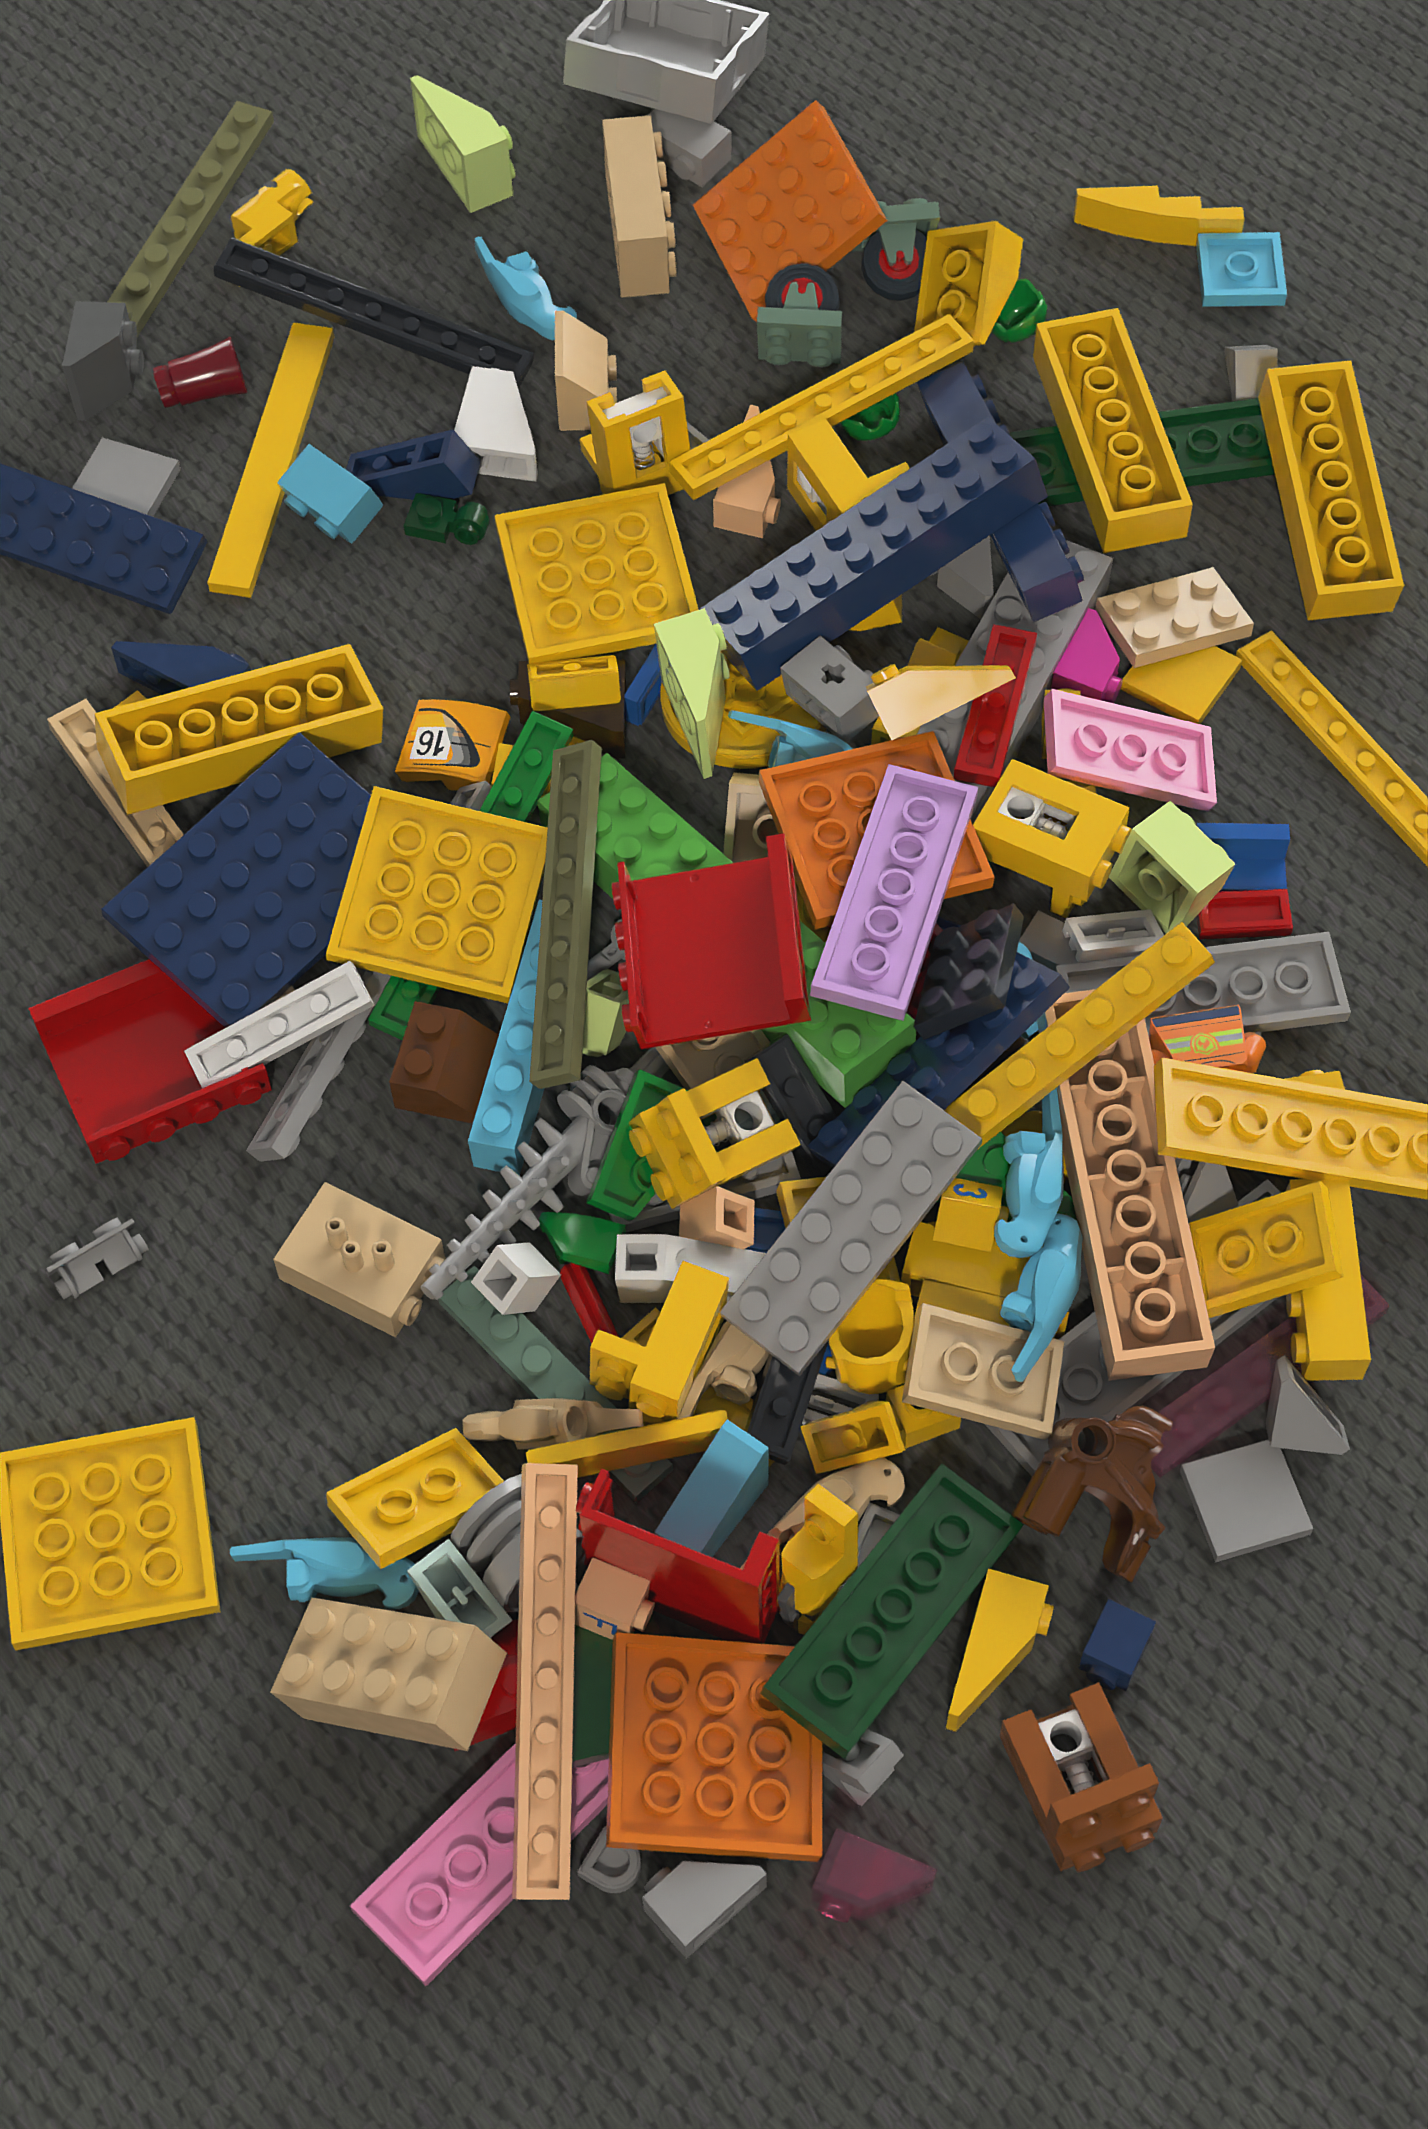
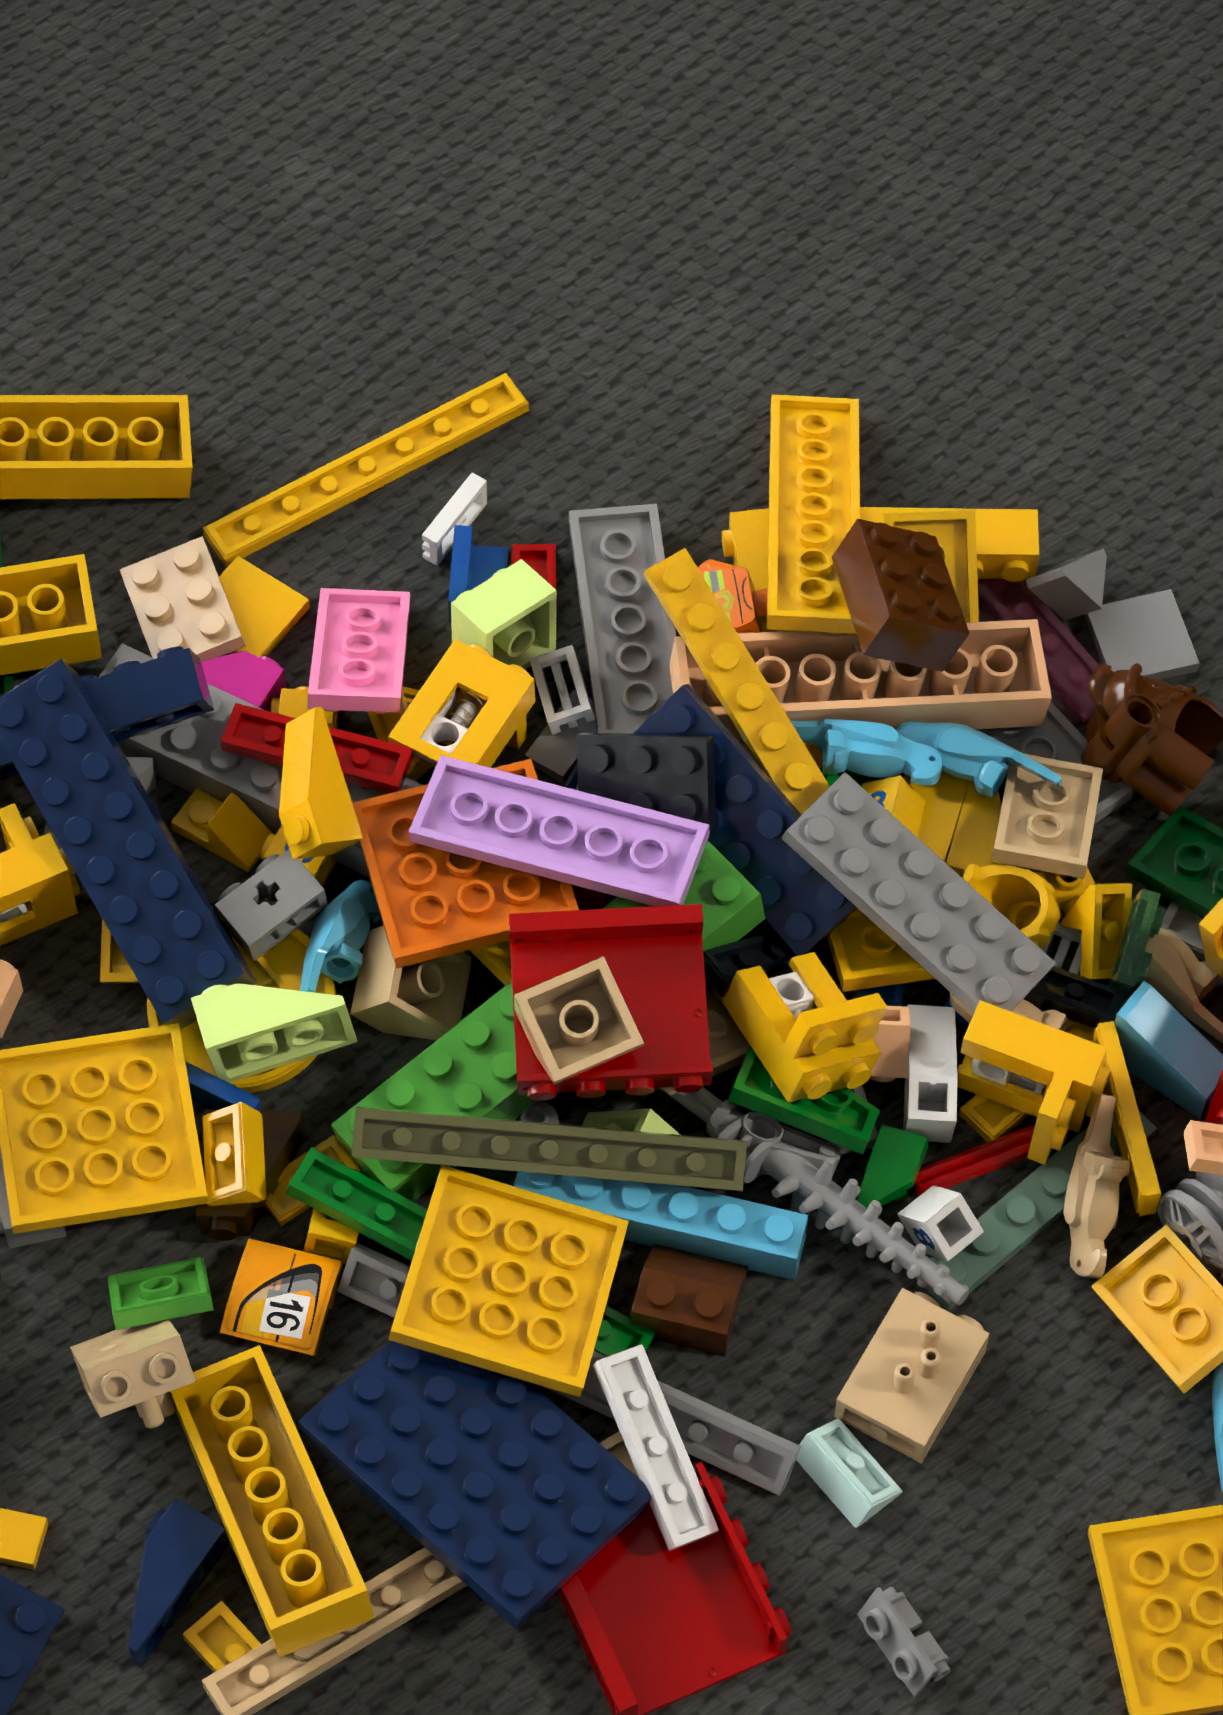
camera: 90 degrees left, 0 degrees up
(269, 1212) = (846, 1472): none -> light aqua slope
(363, 615) = (134, 1369): none -> tan piece
(446, 644) = (159, 1293): none -> bright green tile
(674, 902) = (577, 1020): none -> tan slope
(822, 1445) = (1142, 922): none -> clear green plate
(1200, 1181) = (900, 595): none -> reddish brown brick
(1311, 835) = (459, 510): none -> white tile

